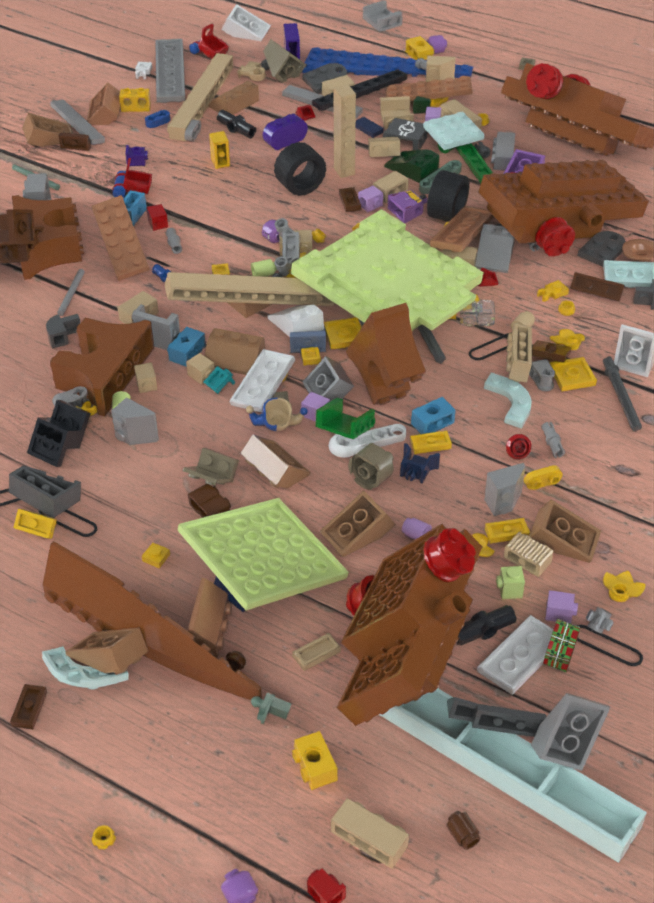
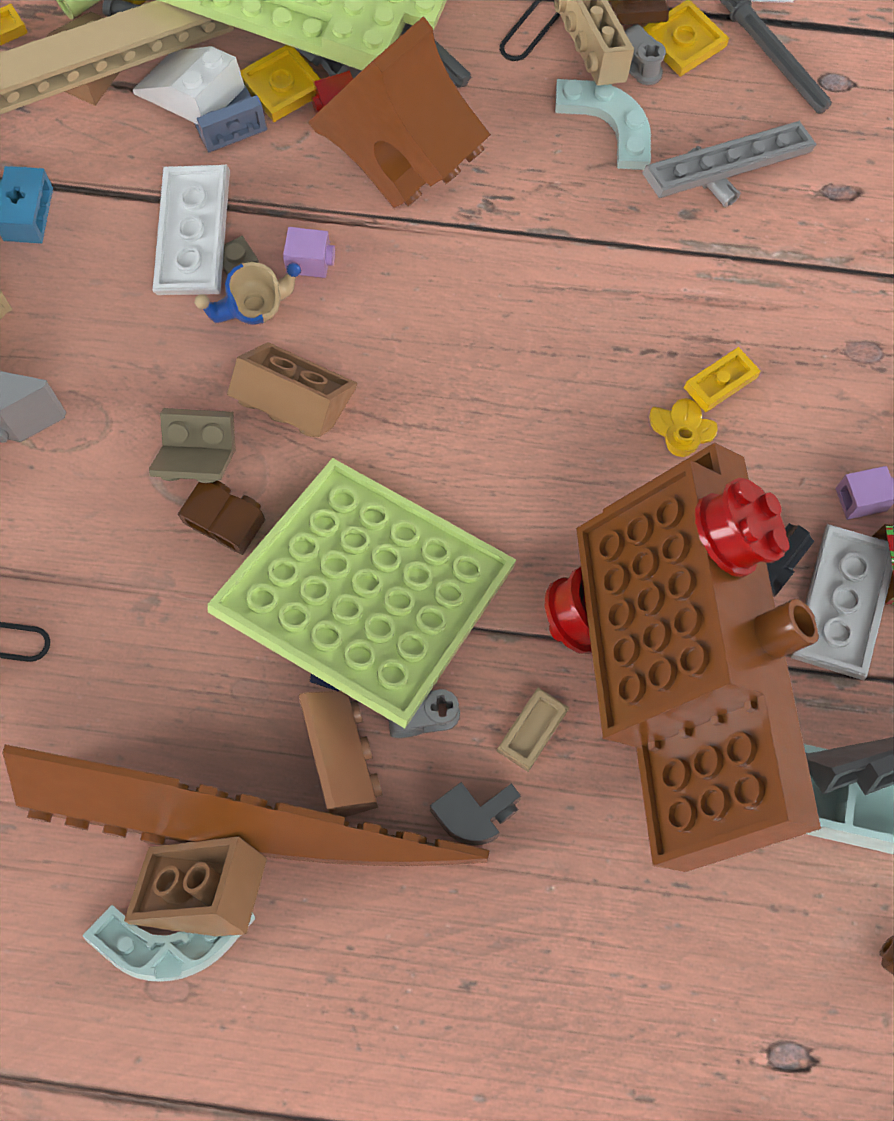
camera: 25 degrees left, 25 degrees up
(28, 706) = (112, 1049): reddish brown plate -> none
(156, 555) = (178, 651): yellow plate -> none
(199, 368) = (71, 243): tan brick -> none
(218, 379) = (113, 254): teal bracket -> none
(233, 350) = (110, 187): medium nougat slope -> none
(236, 660) = (414, 806): reddish brown plate -> none
(257, 670) = (469, 822): none -> dark grey brick
(260, 620) = (427, 716): none -> light grey piece
(271, 705) = (510, 870): sand green piece -> none
(310, 356) = (247, 149): yellow plate -> none
(314, 748) = (656, 950): yellow brick -> none
(328, 380) = (303, 192): light grey slope -> none
(333, 420) = (369, 268): green panel -> none
(357, 525) = (486, 464): medium nougat slope -> none
(370, 832) = (780, 1034): tan brick -> none
(371, 466) = (459, 340): dark tan brick -> none
(382, 436) = (415, 288): white beam -> none
(415, 528) = (585, 433): lavender brick -> none
(418, 466) = (524, 311): dark blue piece -> none
(430, 442) = (525, 252): yellow plate -> none
(433, 416) = (499, 216): dark azure brick -> none
(504, 488) = (691, 307): light grey slope -> none
(511, 582) = (779, 474): yellowish green brick -> none
(518, 446) = (668, 212): red cone -> none
(529, 554) = (776, 411): tan brick -> none
(543, 477) = (726, 261): yellow plate -> none
(565, 432) = (728, 159): none -> light grey tile
(565, 532) = (809, 350): medium nougat slope -> none

